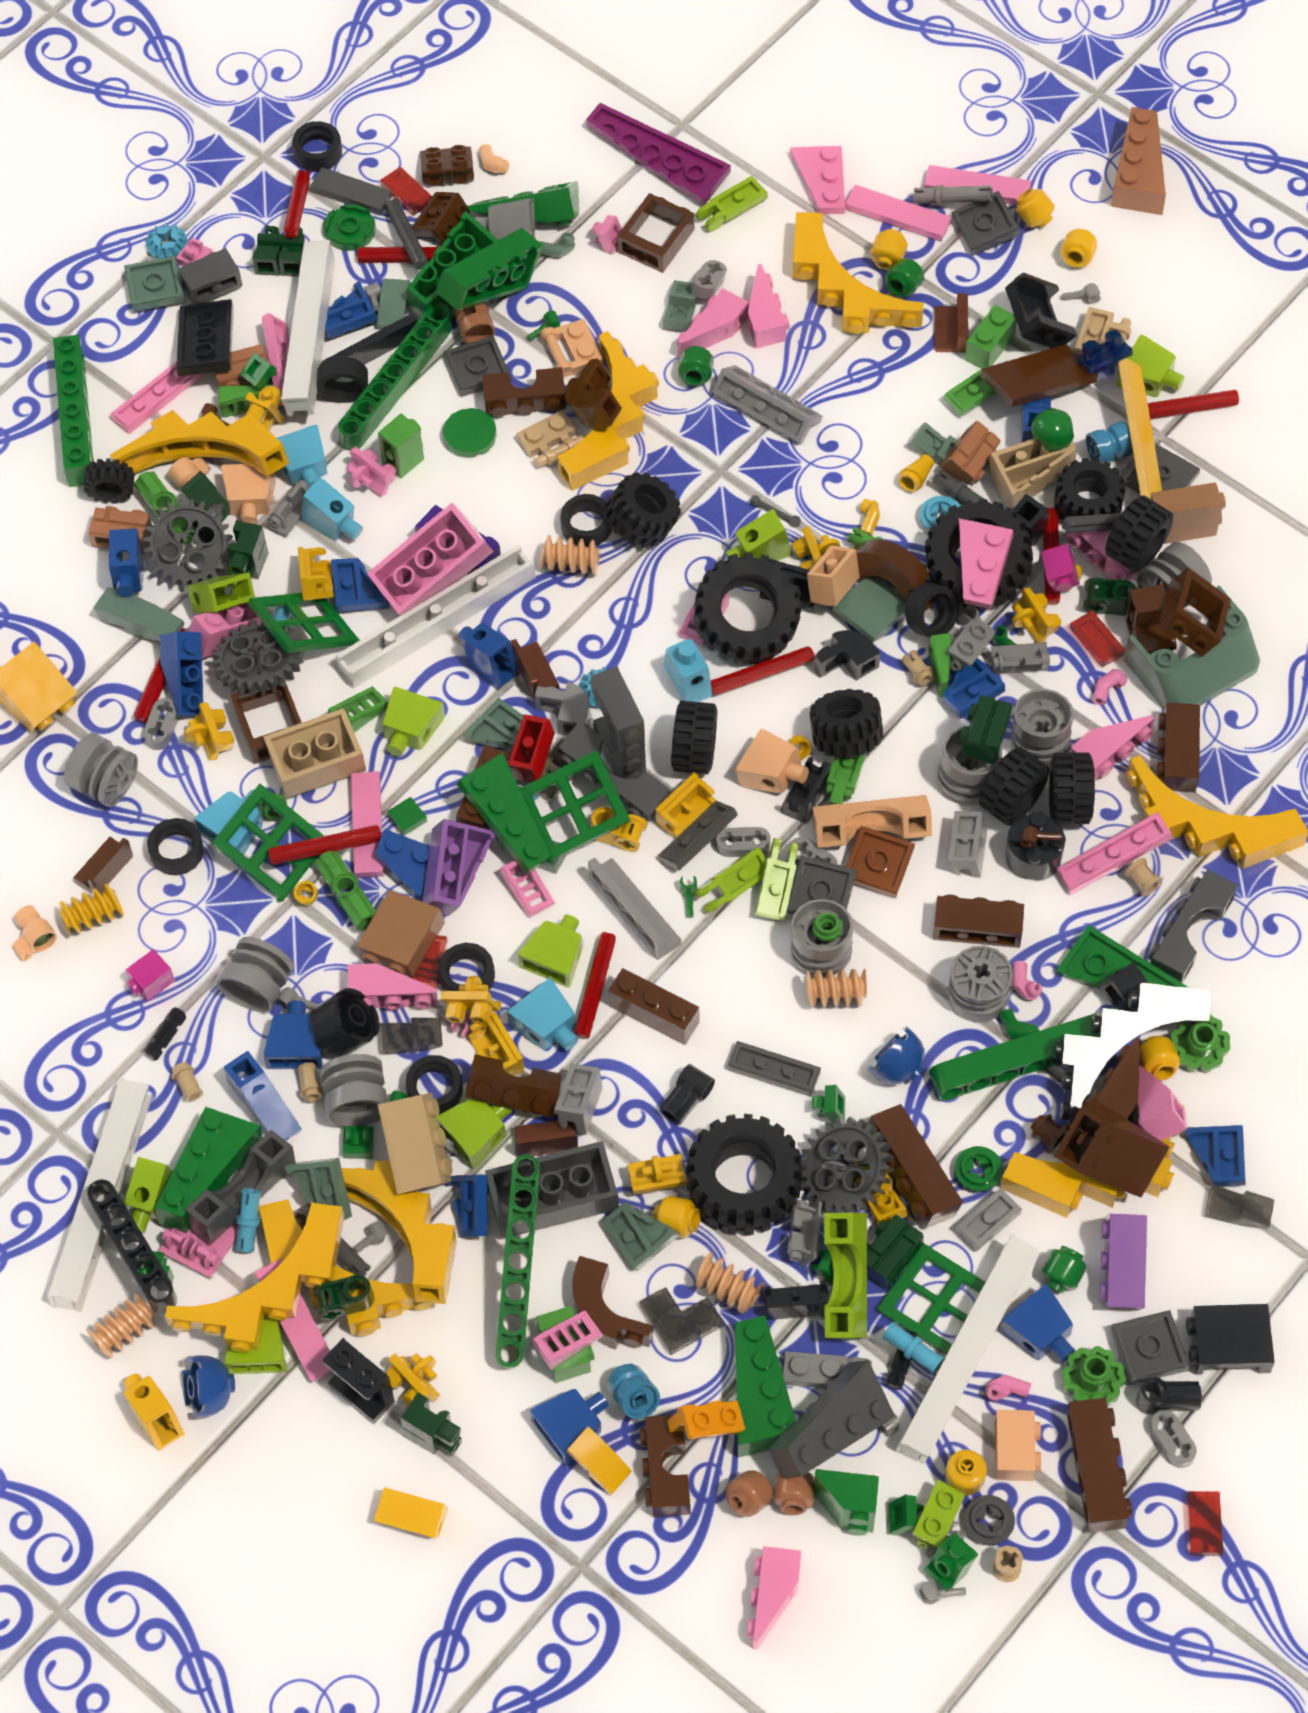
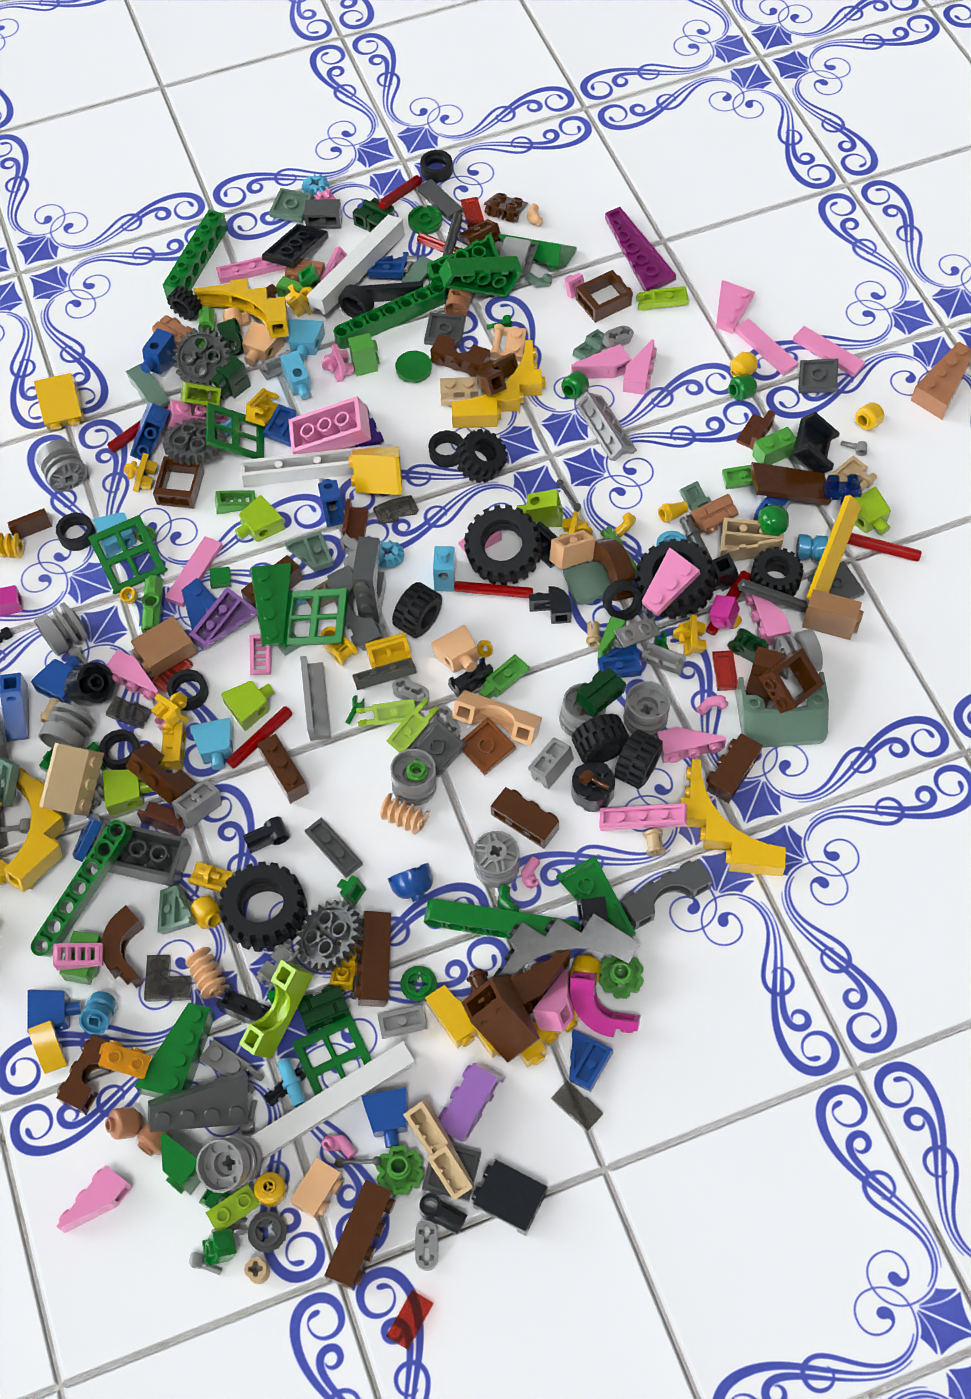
camera: 30 degrees right, 0 degrees up
(155, 722) = (118, 456): light grey beam -> none
(315, 753) = (188, 513): tan slope -> none
(324, 843) = (154, 569): red axle -> none
(527, 587) = (376, 470): none -> yellow slope
(531, 748) = (313, 569): red brick -> none
(570, 555) = (422, 465): light nougat piece -> none
(572, 627) = (393, 509): none -> clear smoke slope
(838, 288) = (702, 390): yellow arch -> none
(846, 723) = (520, 646): black tyre -> none
(907, 1480) = (216, 1163): none -> light grey wheel
(953, 194) = (802, 347): light grey pin -> none
(1019, 1404) = (339, 1162): none -> dark grey hinge
(1035, 207) = (856, 379): yellow head -> none
(1063, 1269) = (427, 1083): green head -> none
(1126, 1327) = (440, 1149): none -> tan slope
(1139, 533) = (786, 611): black tyre -> none
(1216, 1100) = (593, 1012): none -> dark pink arch

